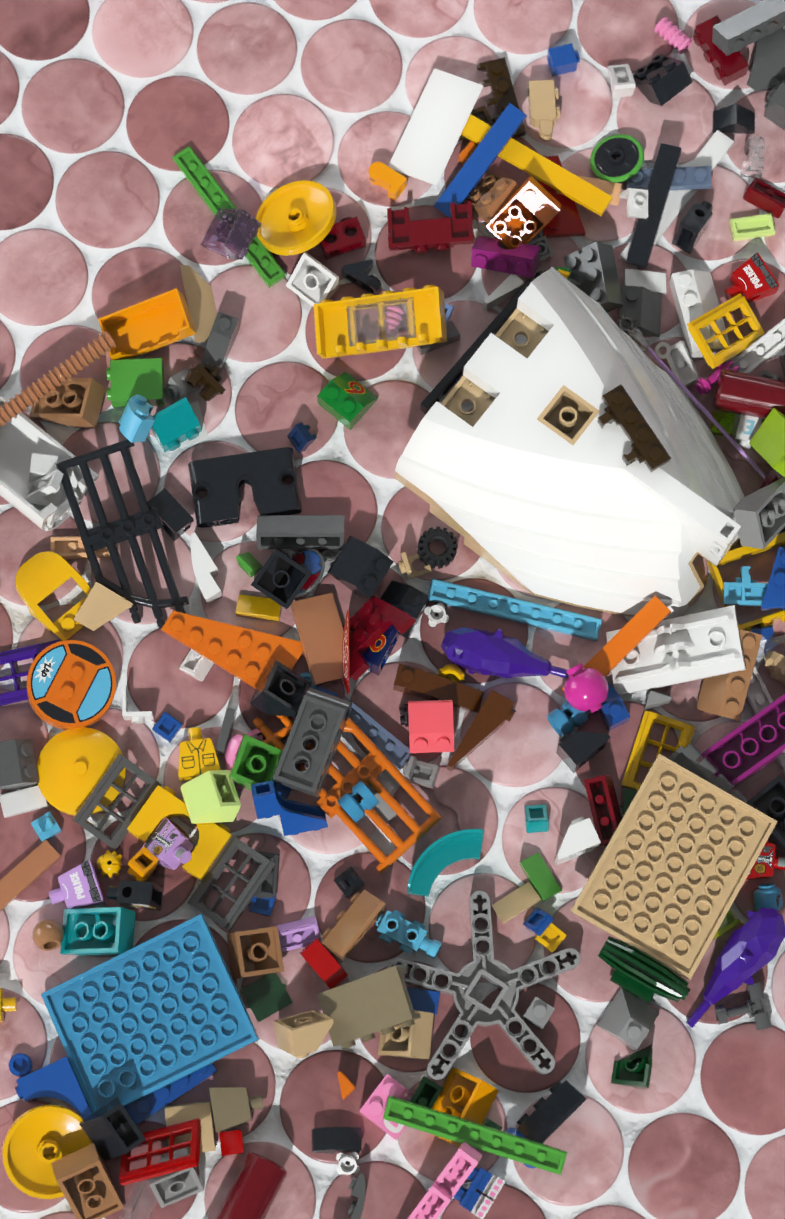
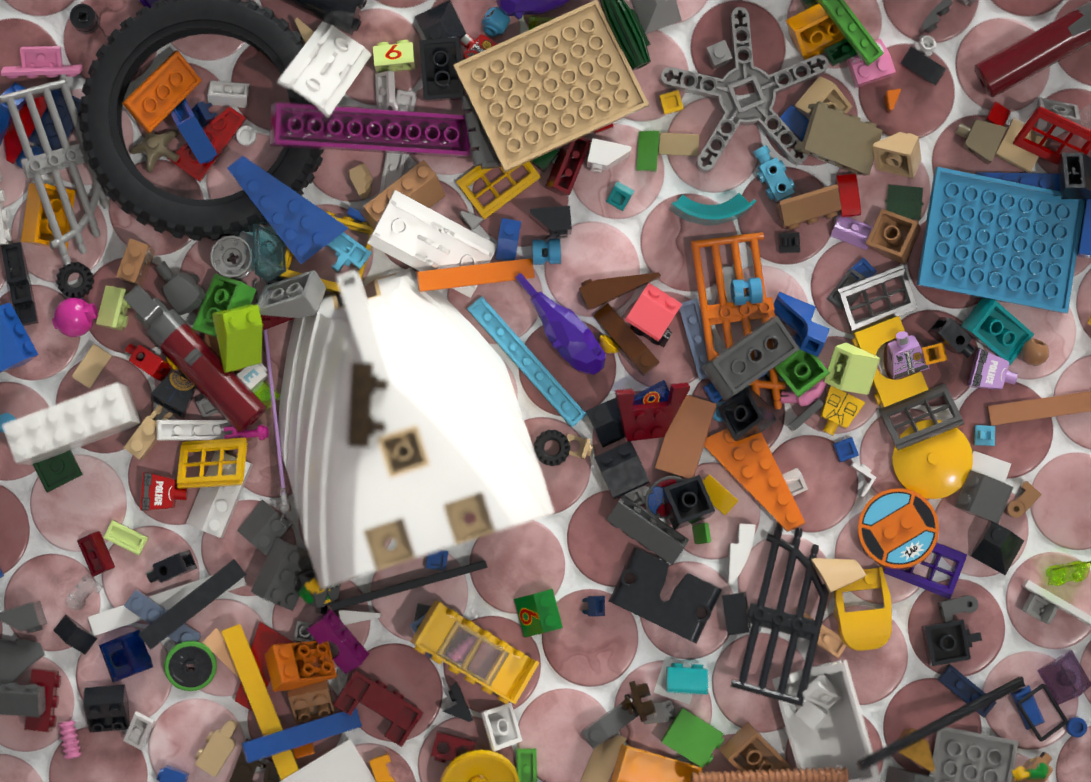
camera: 150 degrees left, 10 degrees up
(113, 868) = (951, 379): yellow animal -> none
(136, 419) = (717, 700): medium azure brick -> none
(346, 663) = (679, 409): red sticker -> none
(420, 772) = (682, 285): light grey bracket -> none
(430, 612) = (586, 392): white plate -> none
(538, 921) = (672, 119): blue tile -> none
(585, 688) = (521, 259): dark pink brick -> none
(636, 202) = (205, 613): white bracket -> none
(651, 280) = (242, 550): white slope -> none
(677, 129) = (126, 656): none -> clear blue slope
(679, 361) = (263, 465): white hinge -> none

